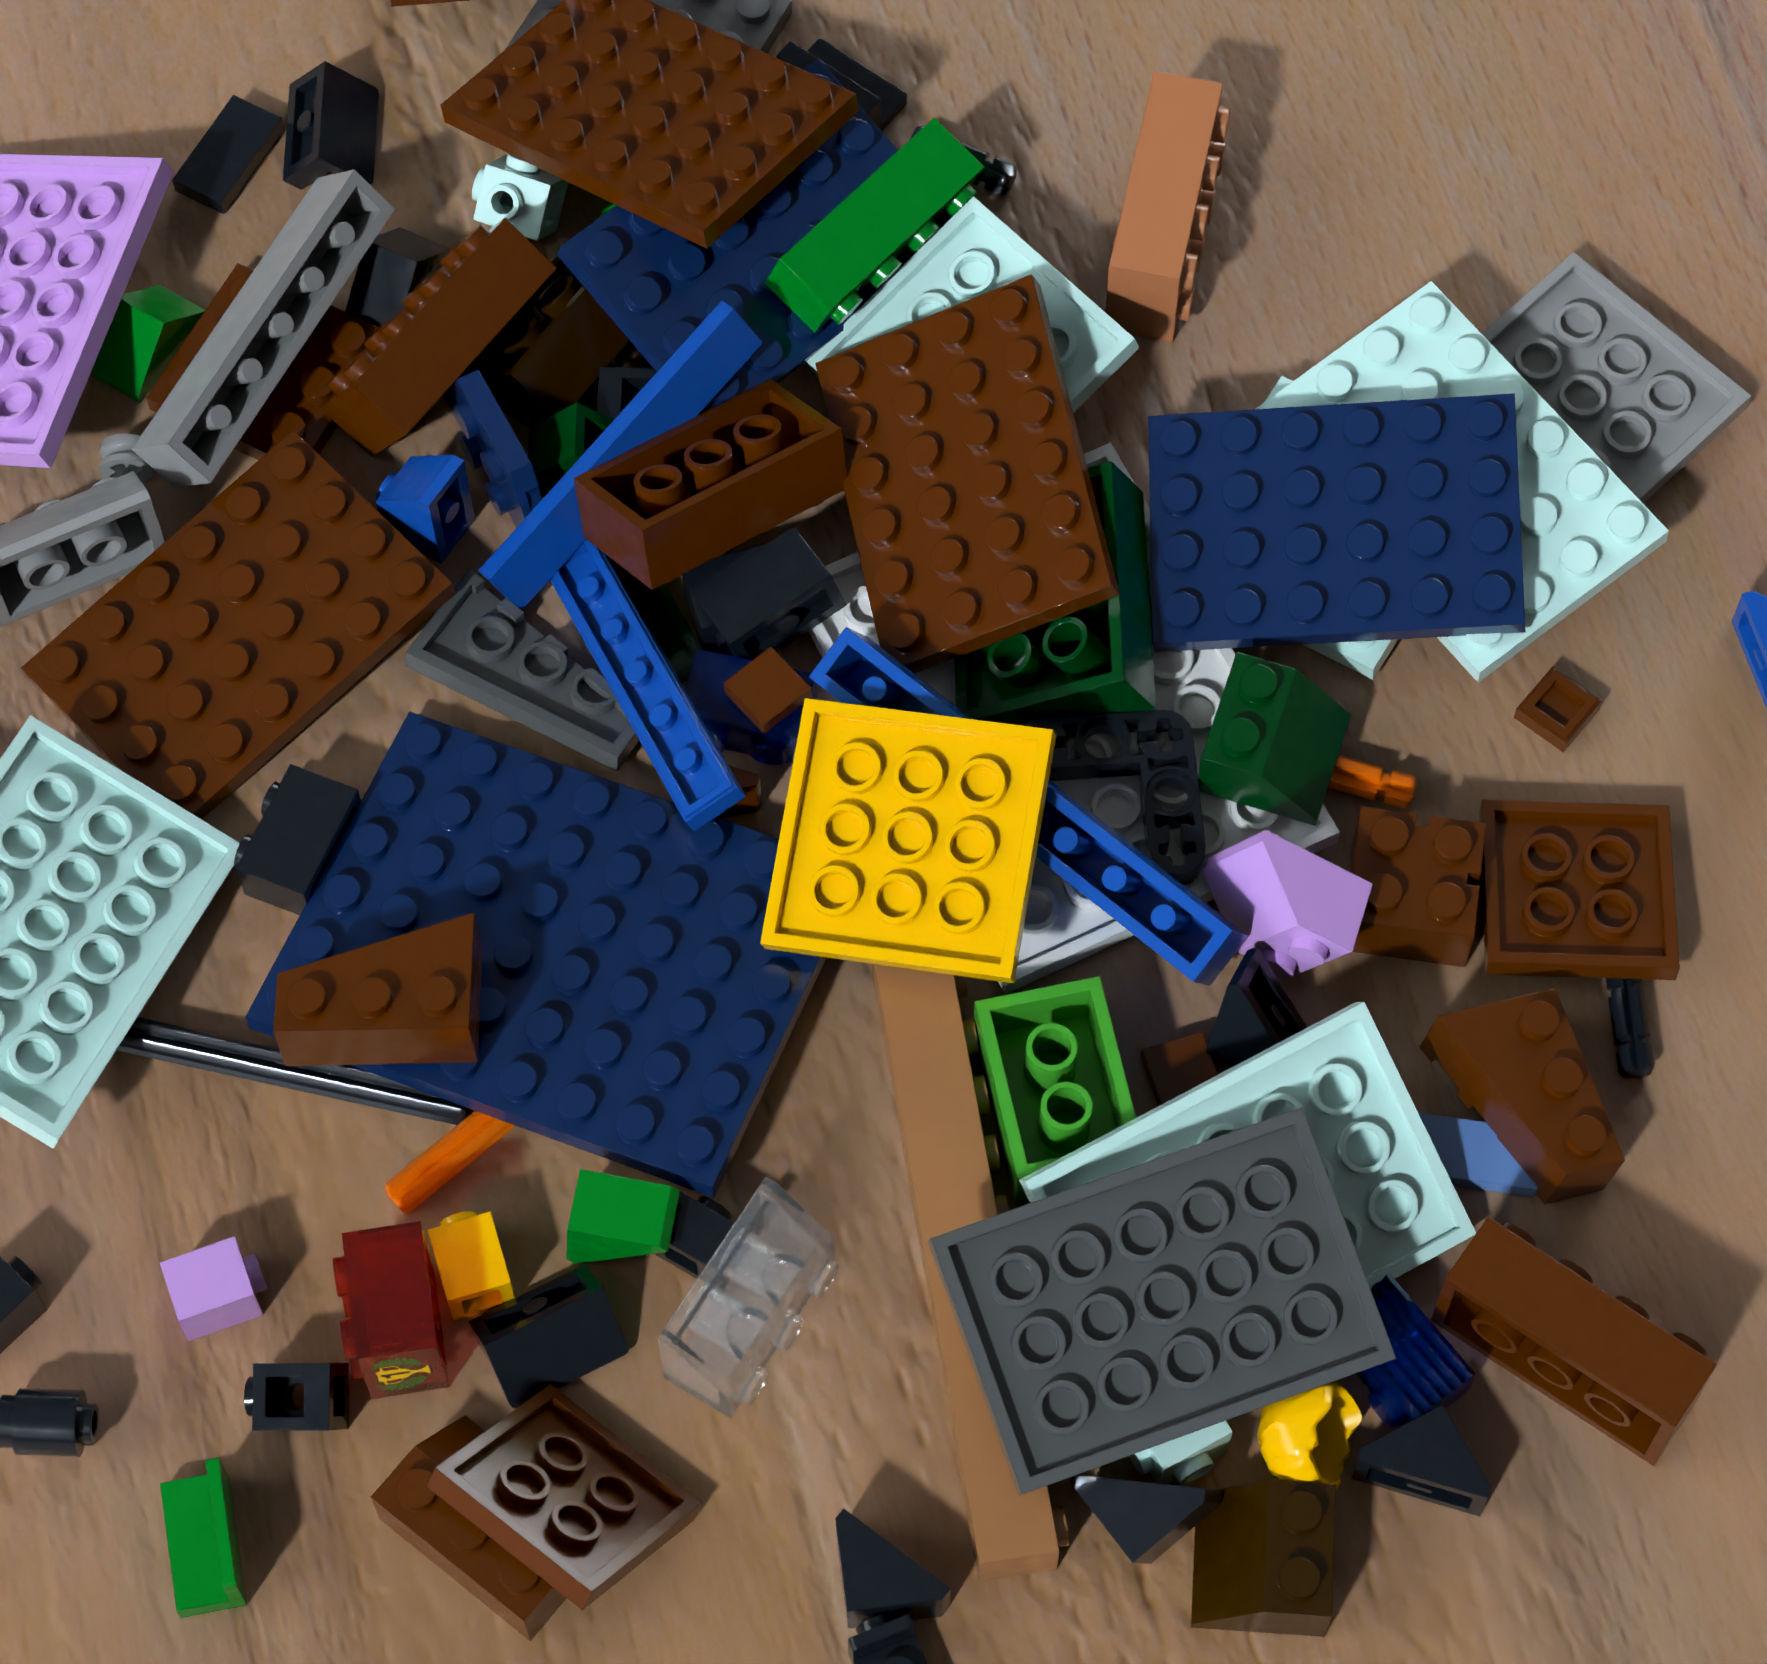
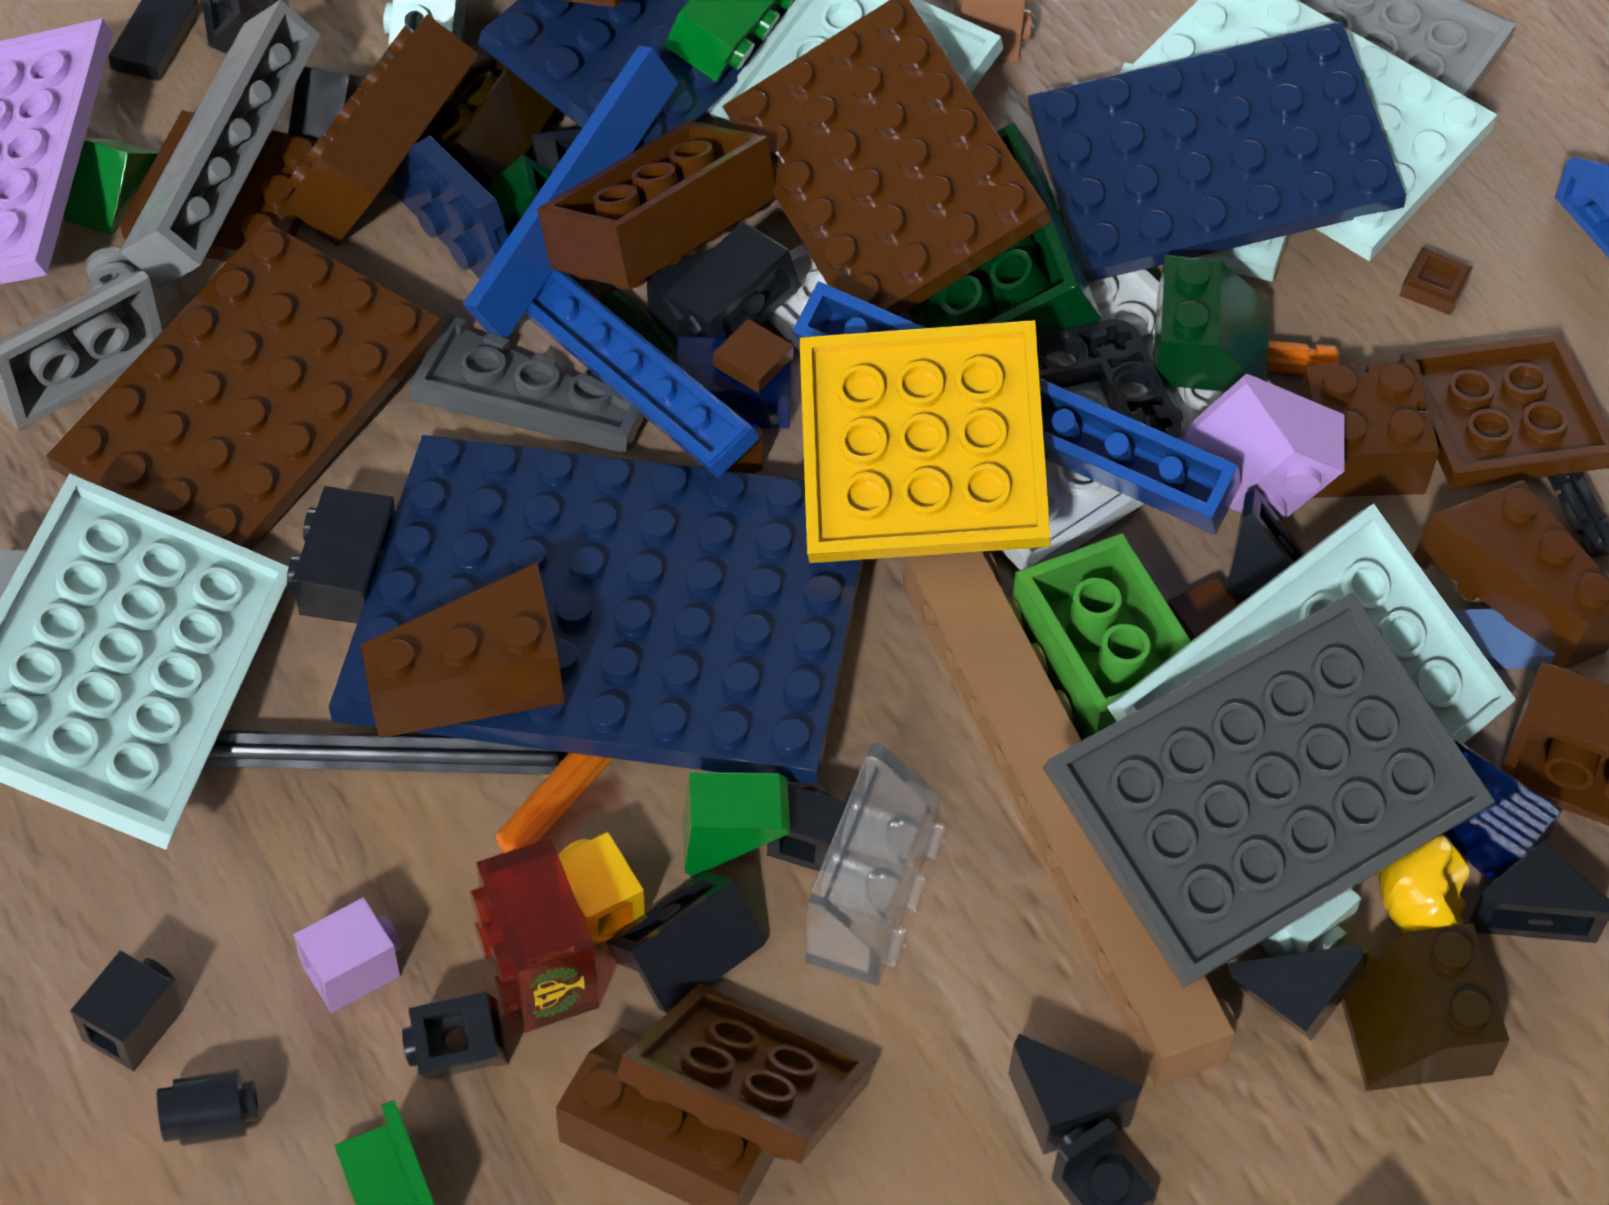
camera: 15 degrees left, 10 degrees down
(428, 503) = (404, 256): blue slope -> none

